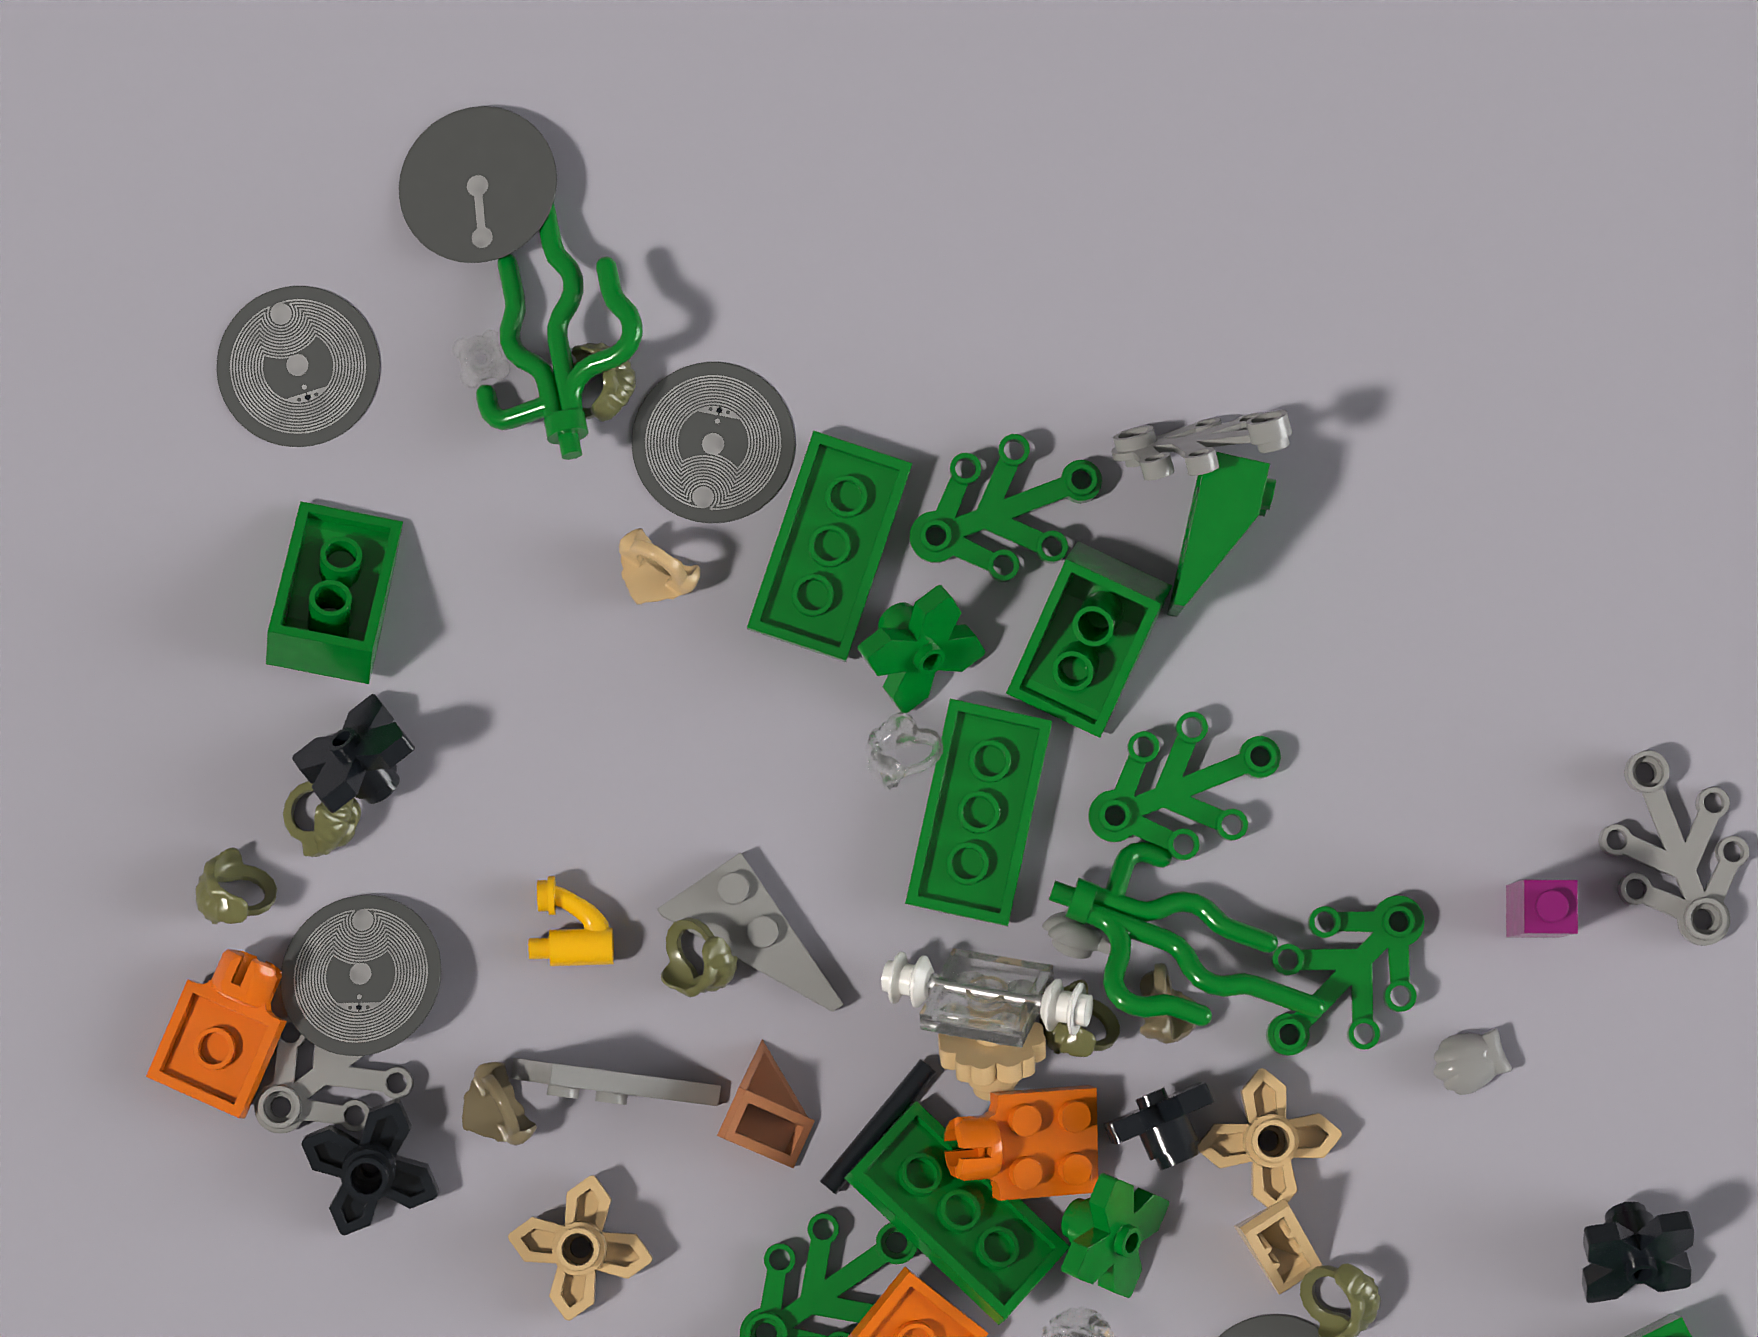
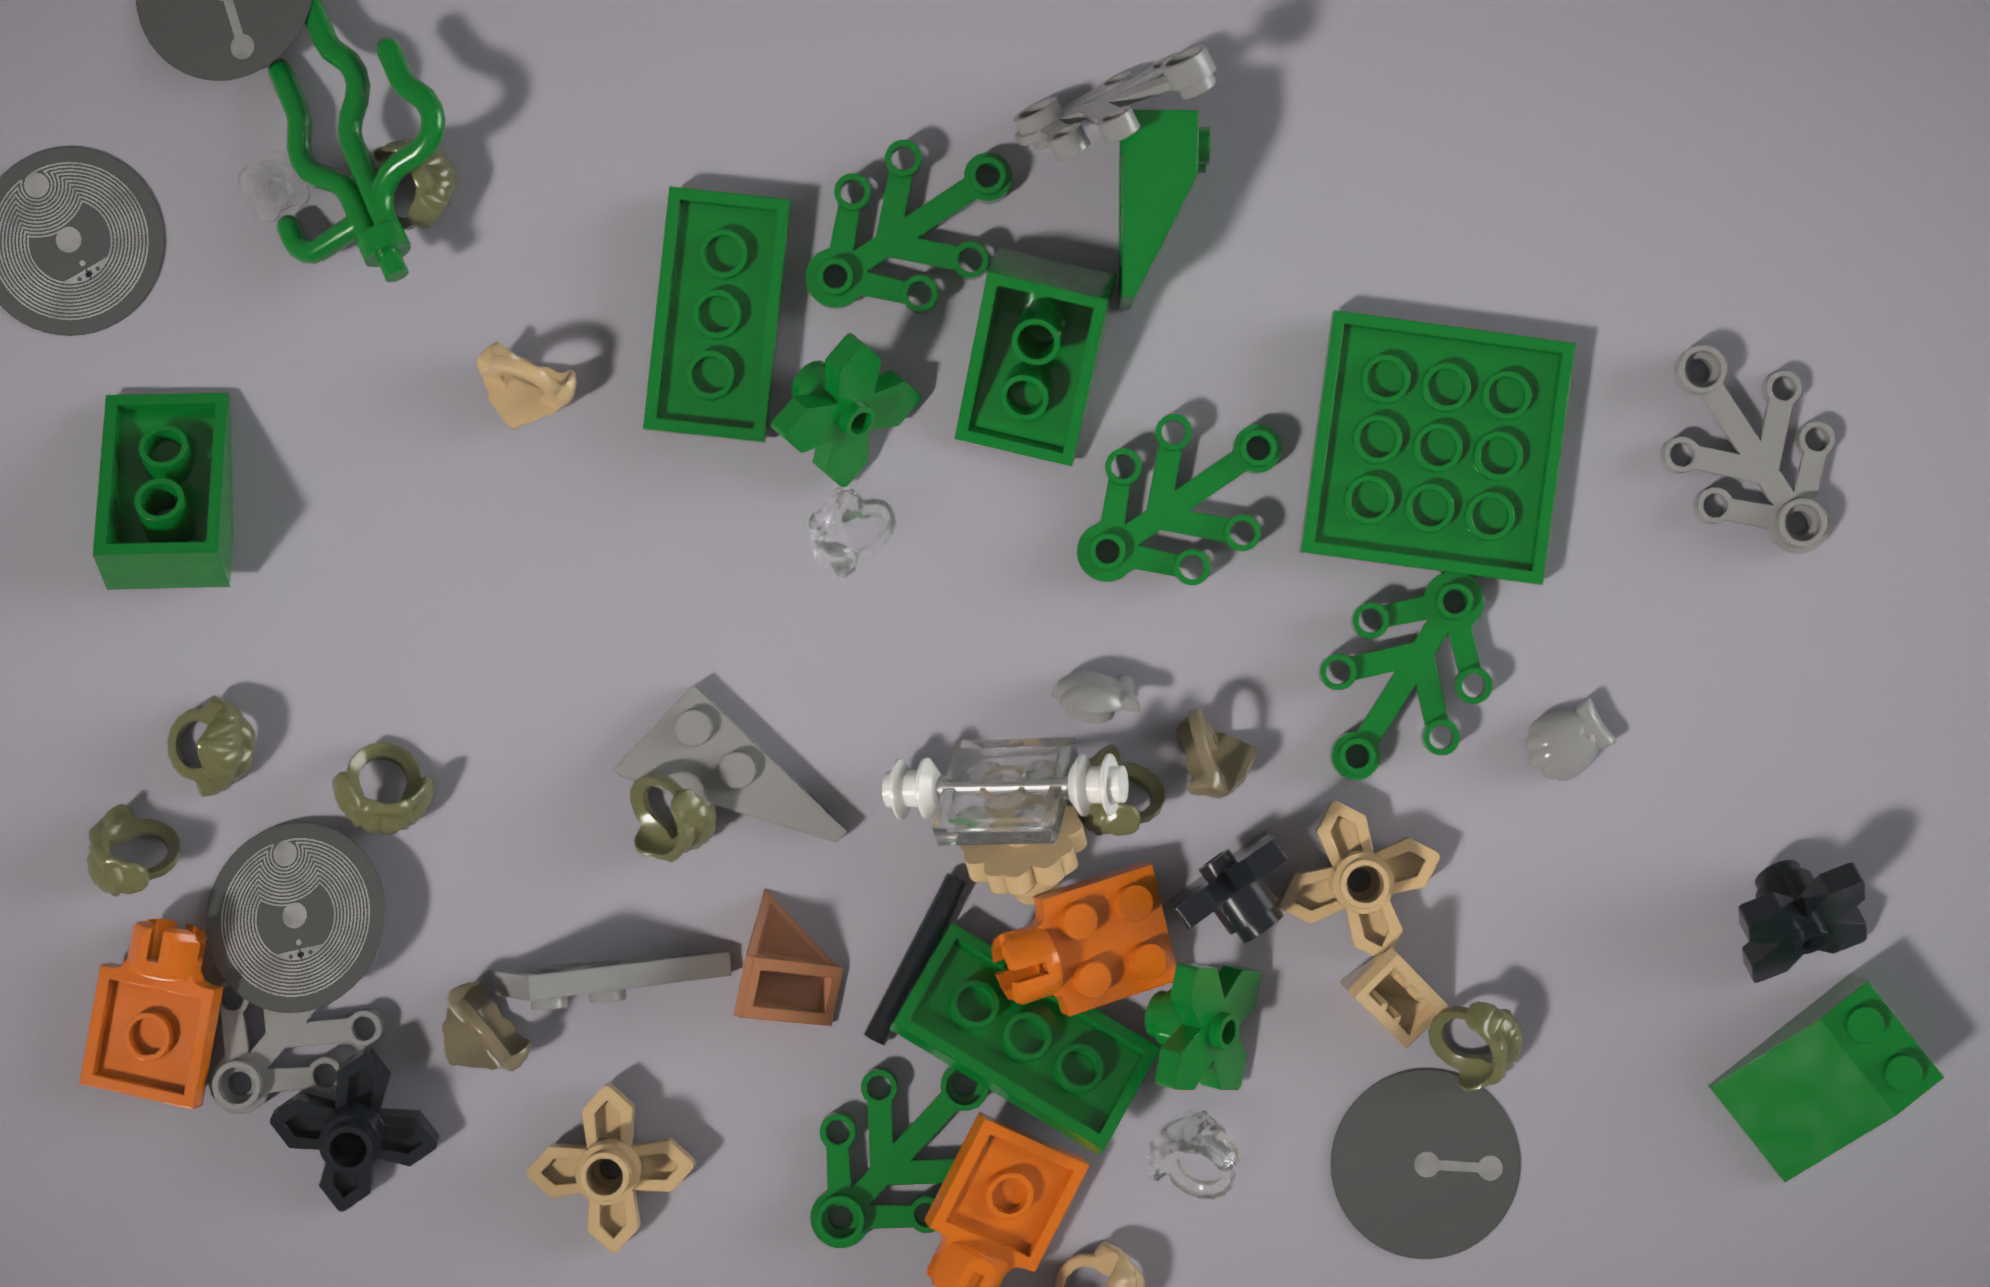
camera: 10 degrees left, 5 degrees up
(357, 758) = (232, 674): black plant -> none
(447, 901) = (376, 816): none -> olive piece
(572, 946) = (525, 833): yellow plant -> none
(713, 442) = (560, 224): dark grey piece -> none
(978, 812) = (952, 581): green plate -> none
(1128, 919) = (1145, 666): green plant -> none
(1411, 789) = (1437, 447): none -> green plate
(1542, 908) = (1616, 554): magenta brick -> none

